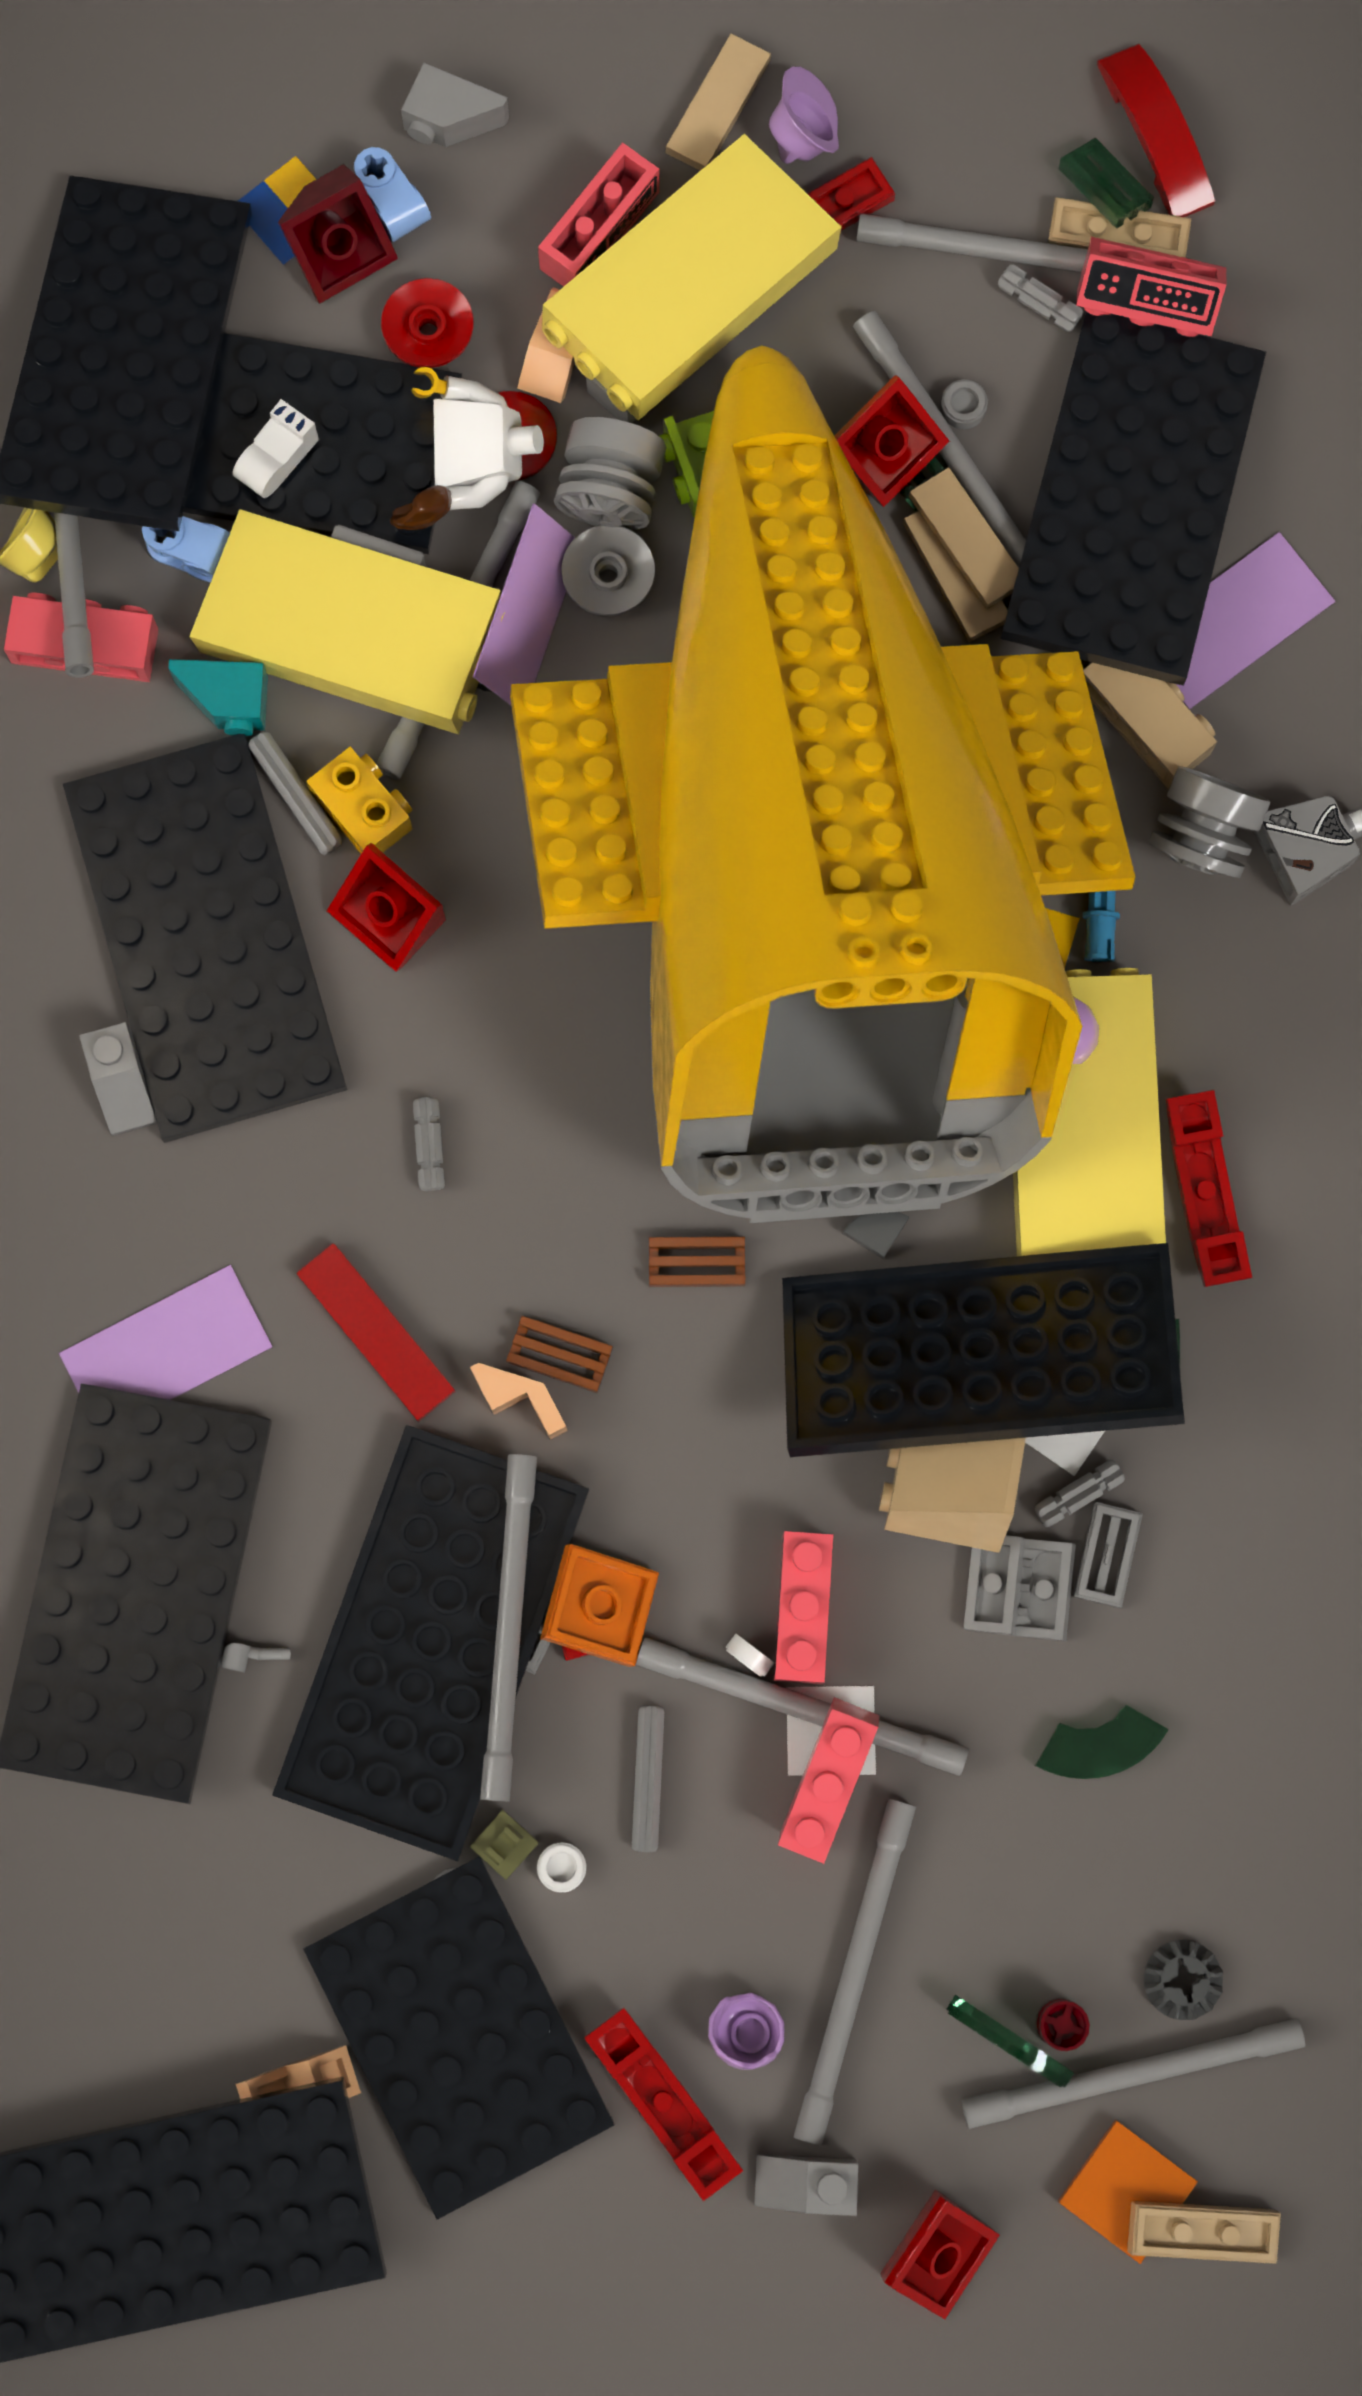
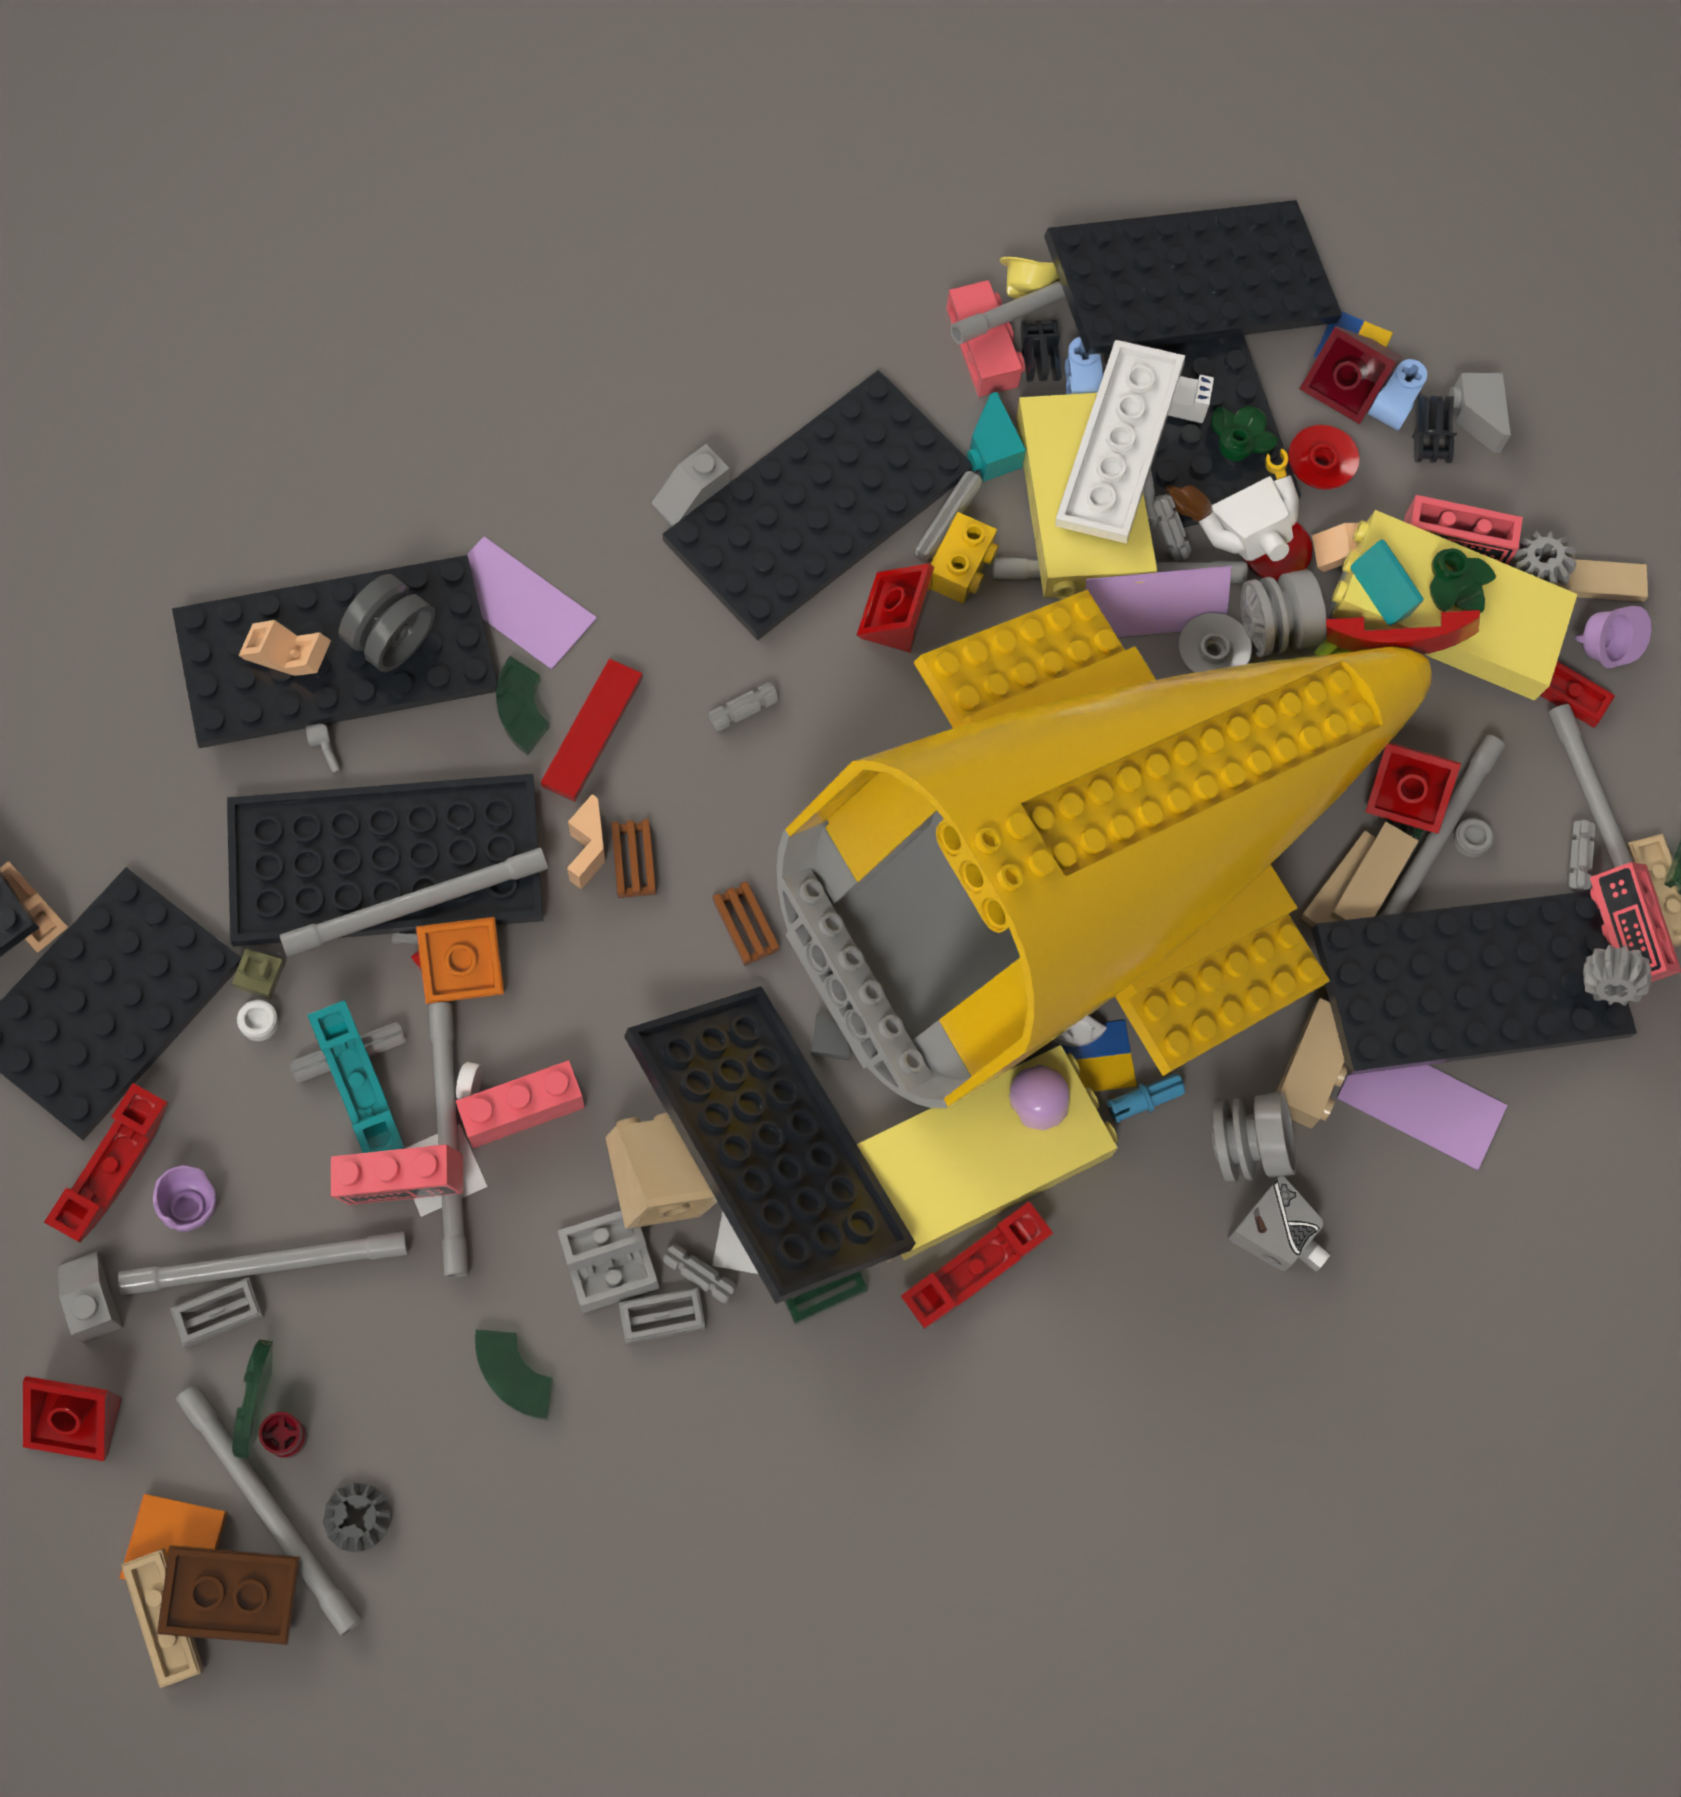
camera: 60 degrees right, 10 degrees down
(120, 1651) = (282, 650): none -> light nougat slope
(133, 580) = (1041, 341): none -> black arm
(145, 1517) = (386, 622): none -> dark grey wheel
(304, 1407) = (517, 705): none -> clear green tile
(317, 548) = (1120, 441): none -> white plate
(352, 396) = (1242, 432): none -> dark green plate
(440, 544) = (1171, 527): none -> light grey axle
(446, 175) = (1434, 423): none -> black arm
(646, 342) = (1386, 583): none -> teal slope
(680, 128) = (1556, 552): none -> light grey gear
(683, 258) = (1462, 584): none -> dark green plate
(683, 409) = (1453, 629): none -> red slope
(695, 1782) = (355, 1078): none -> teal slope
(885, 2089) = (244, 1318): none -> light grey tile
(1207, 339) = (1617, 975): none -> light grey gear
(1215, 2149) = (228, 1595): none -> reddish brown tile

